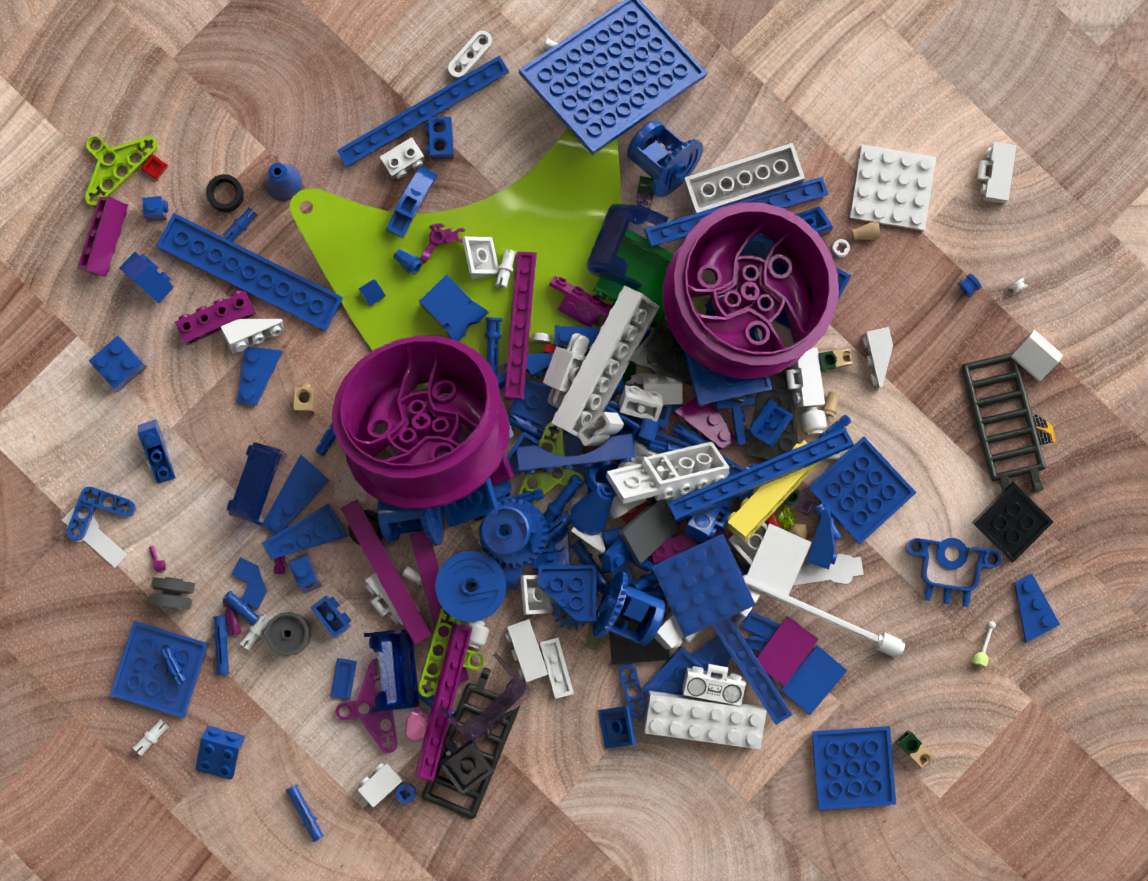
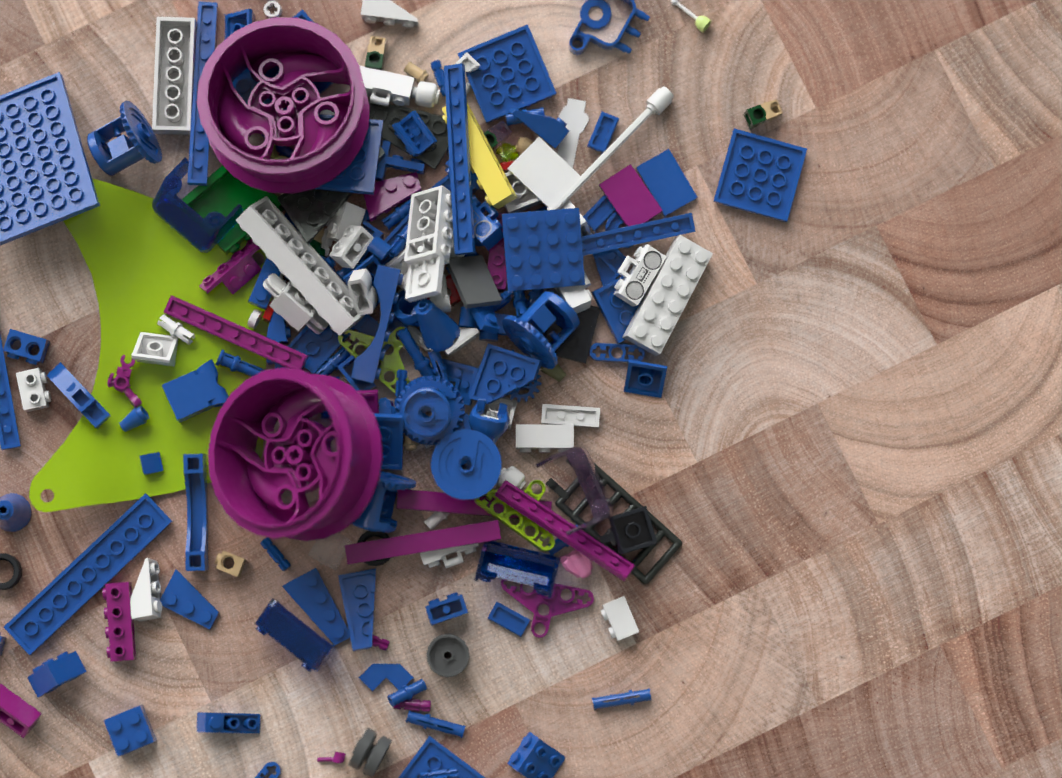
camera: 65 degrees left, 0 degrees up
(240, 224) = (38, 567): blue pin -> none
(255, 631) = (434, 686): white pin -> none
(305, 573) = (396, 620): blue torso -> none
(355, 345) = (197, 512): none -> blue arch
(403, 793) = (634, 600): blue wheel -> none
(514, 594) = (490, 427): none -> blue piece
(586, 558) = (478, 351): blue pin -> none
(645, 192) = (151, 172): leg -> none
(839, 602) = (603, 132): none -> blue plate
(858, 449) = (469, 62): none -> white tile

